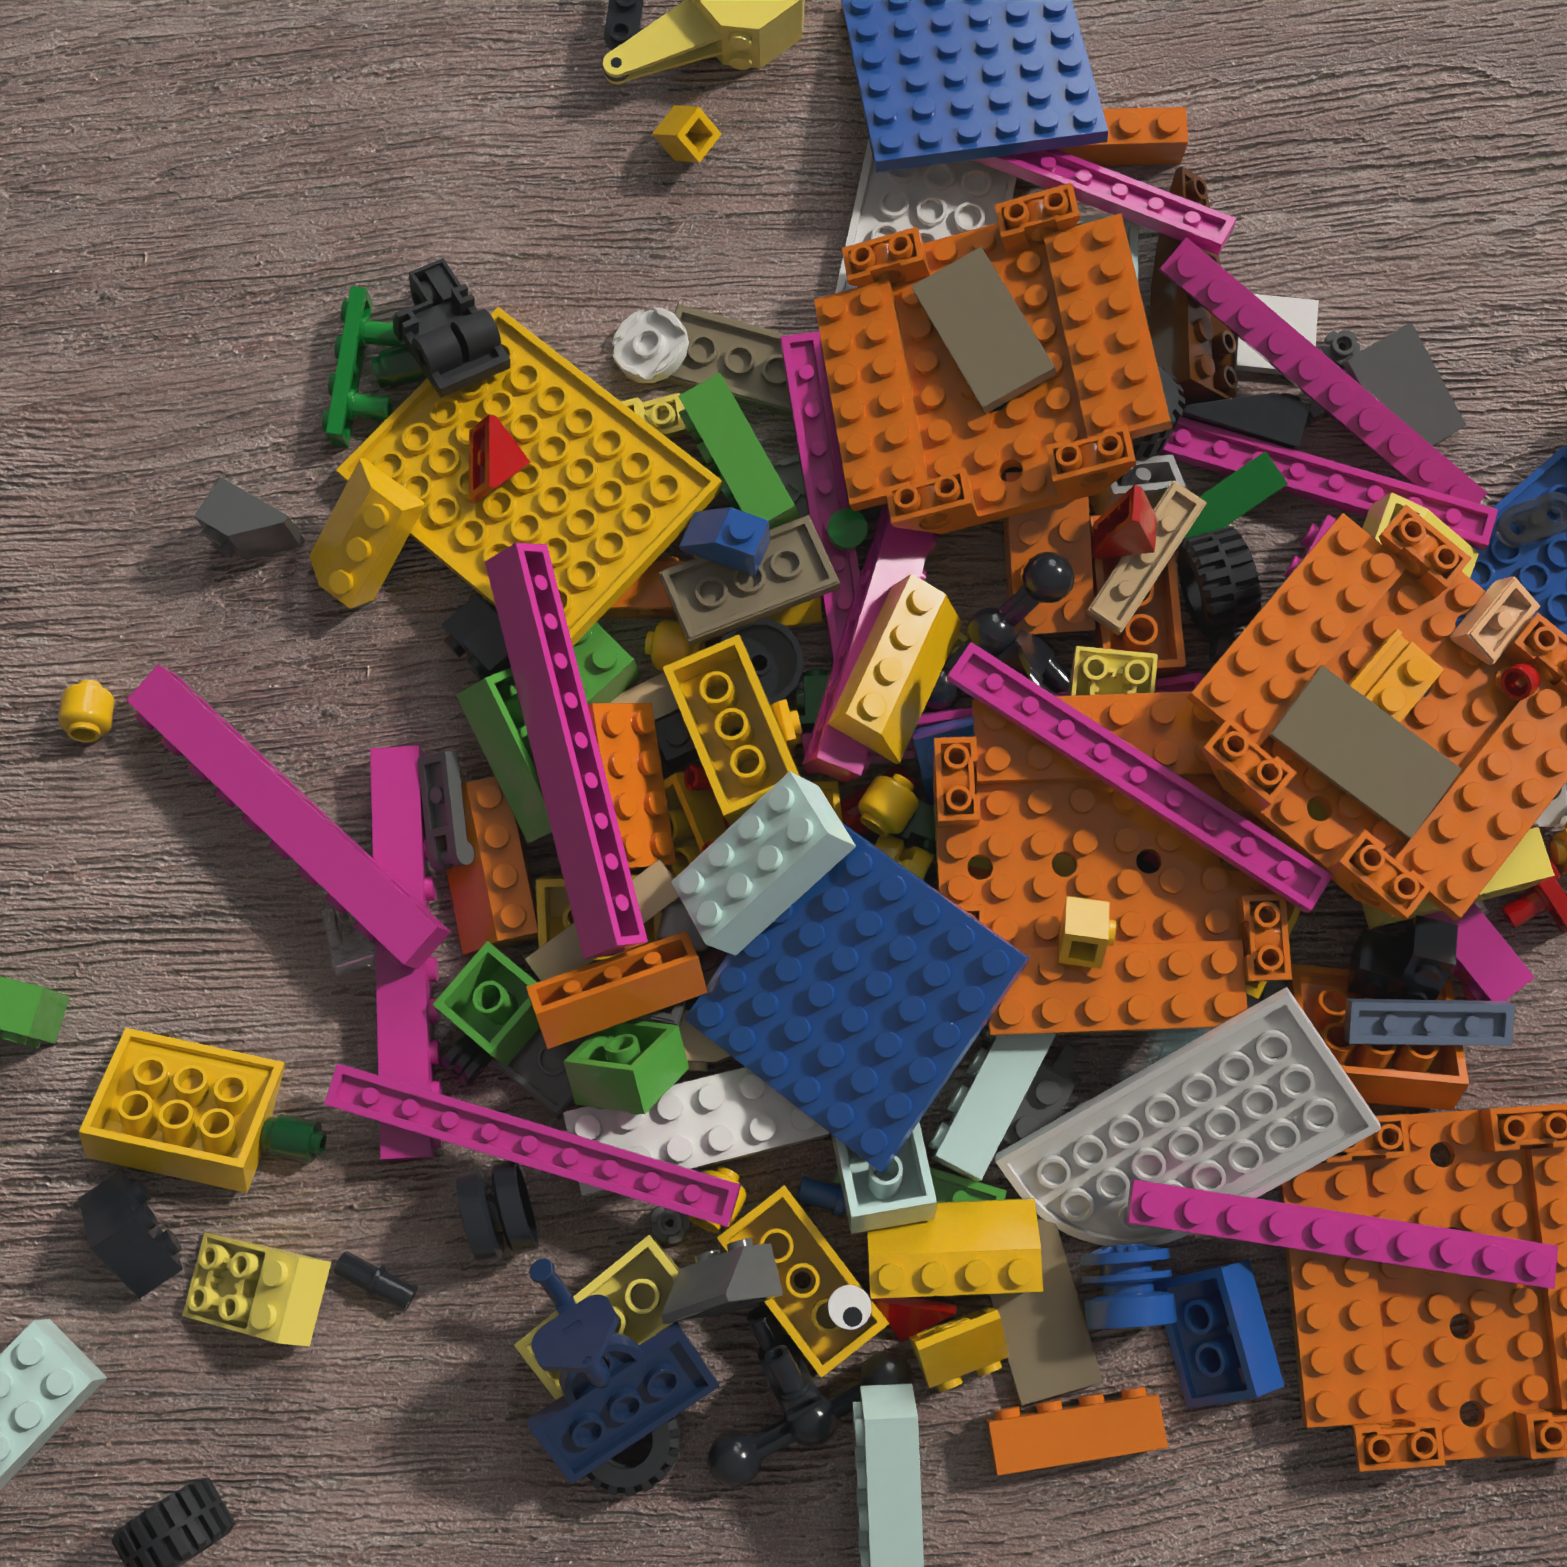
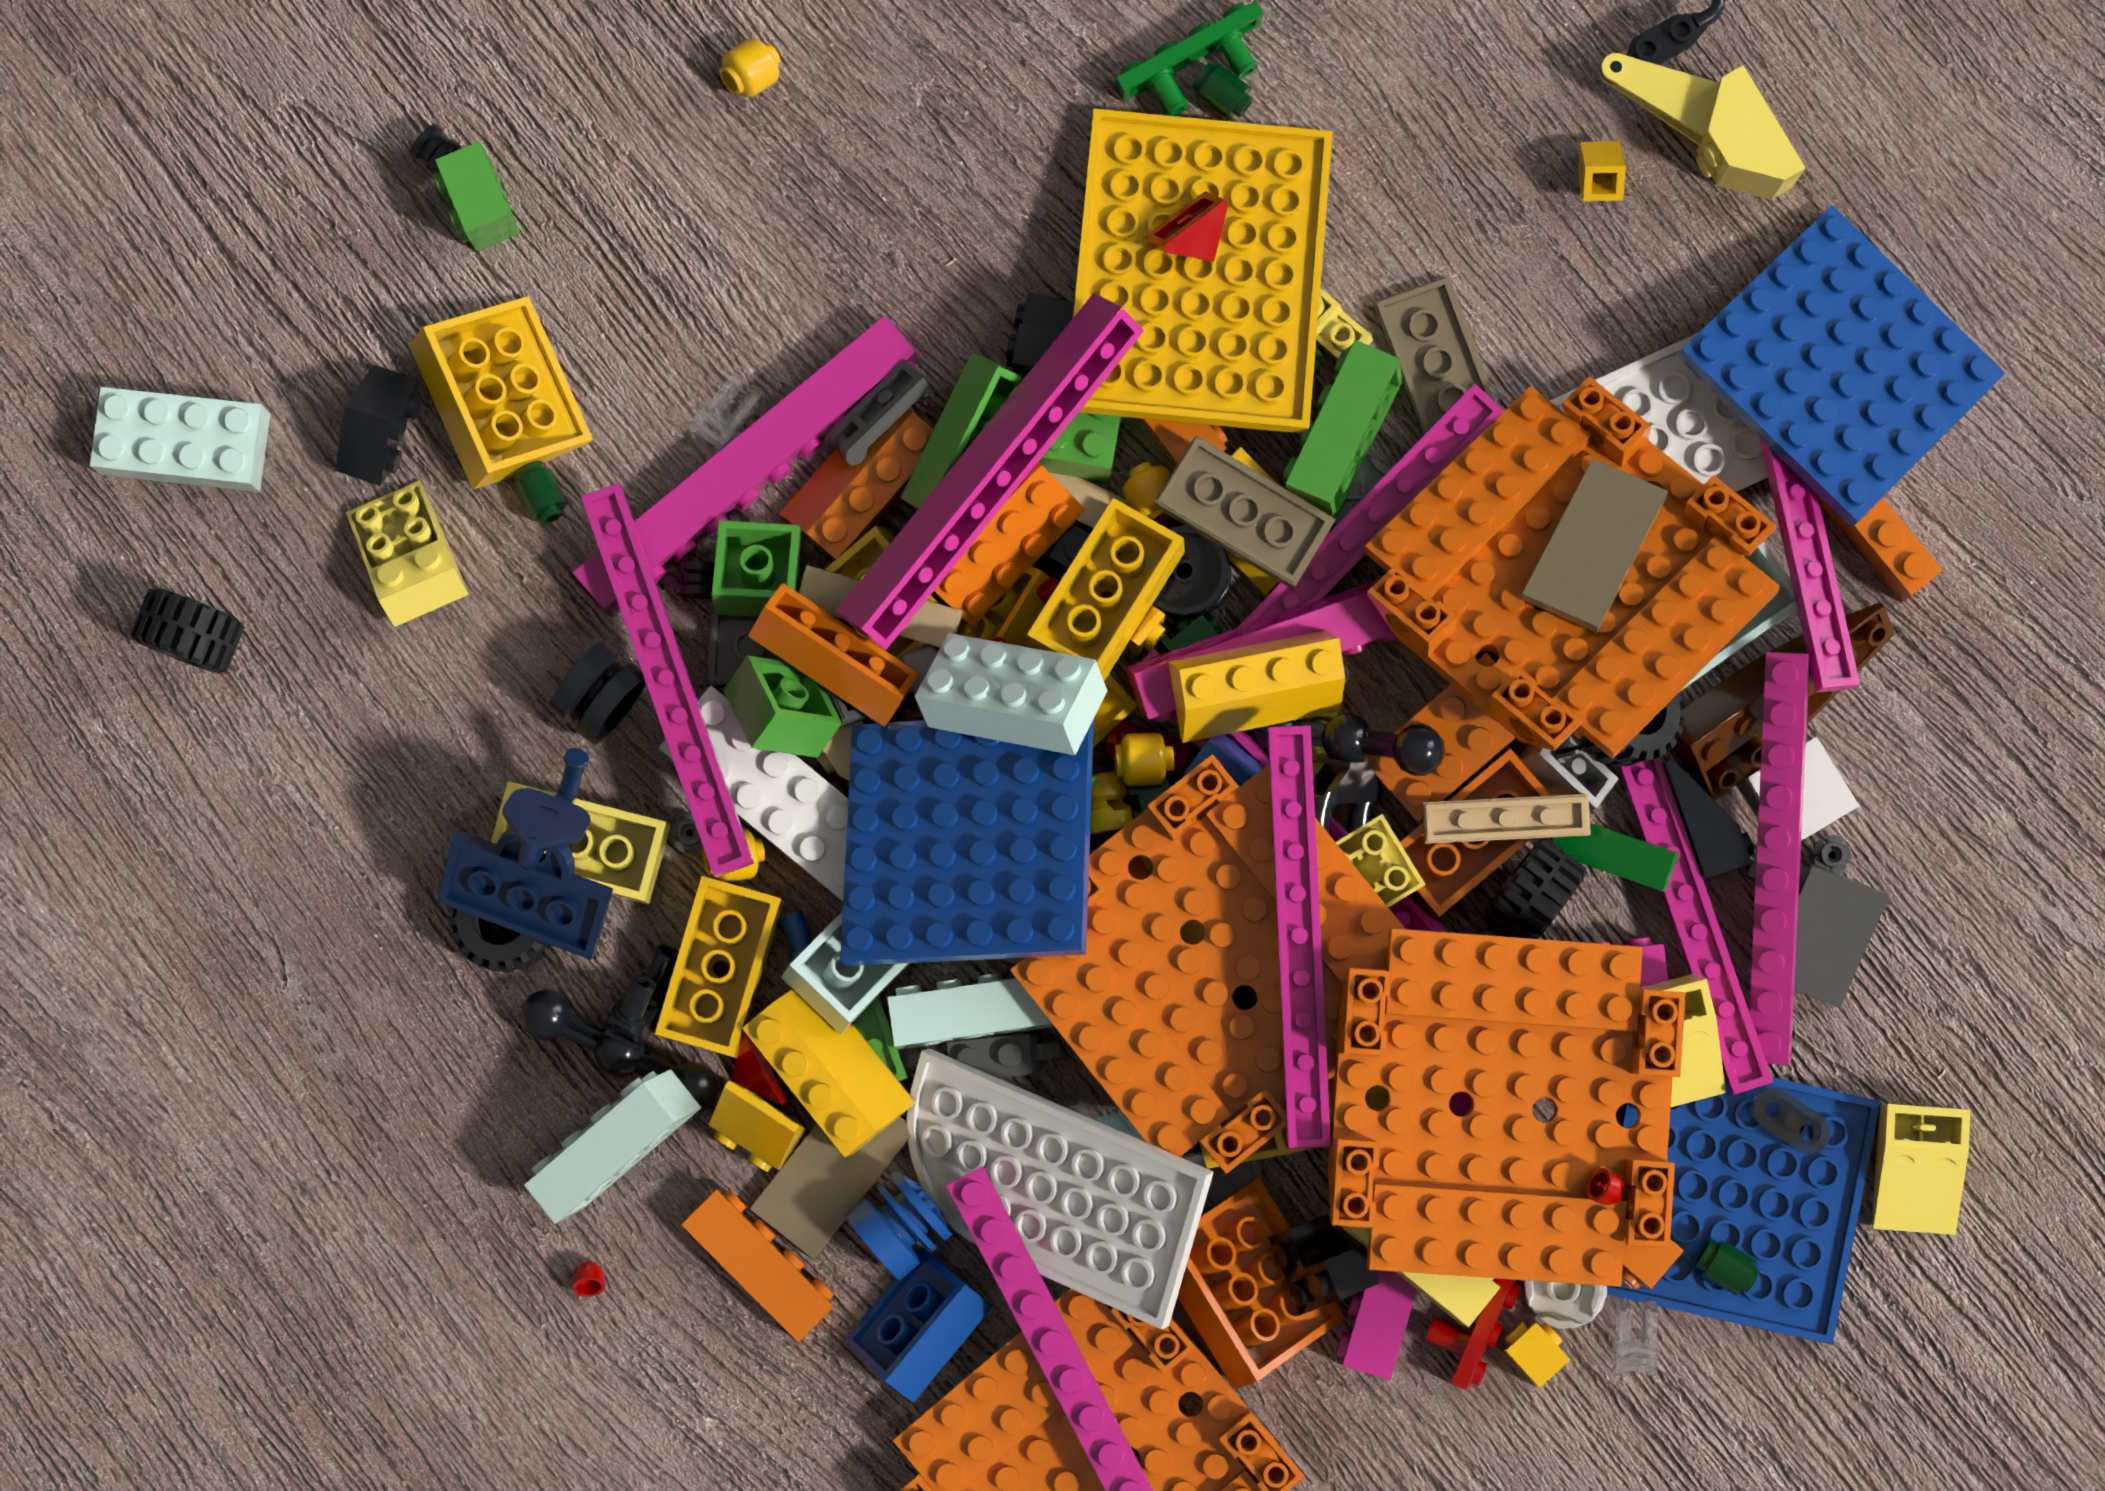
camera: 55 degrees right, 5 degrees up
(245, 524) = (990, 72): dark grey slope -> none
(289, 818) = (781, 293): dark pink brick -> none
(364, 535) = (1052, 175): yellow slope -> none
(375, 1280) = (479, 639): black axle -> none
(448, 332) = (1275, 109): black plate -> none
(650, 345) = (1394, 280): white tile -> none
(723, 1282) = (669, 904): dark grey slope -> none
(728, 538) = (1261, 469): blue slope -> none
(846, 529) = (1349, 559): green tile -> none
(849, 1307) = (723, 1016): white tile -> none
(1085, 932) = (1142, 984): yellow brick -> none
(1126, 527) = (1514, 784): red slope -> none
(1365, 752) = (1446, 1100): dark tan tile -> none
(1396, 676) = (1526, 1083): light orange plate -> none
(1428, 1022) = (1285, 1316): sand blue plate -> none
(1495, 620) = (1646, 1134): light nougat slope -> none

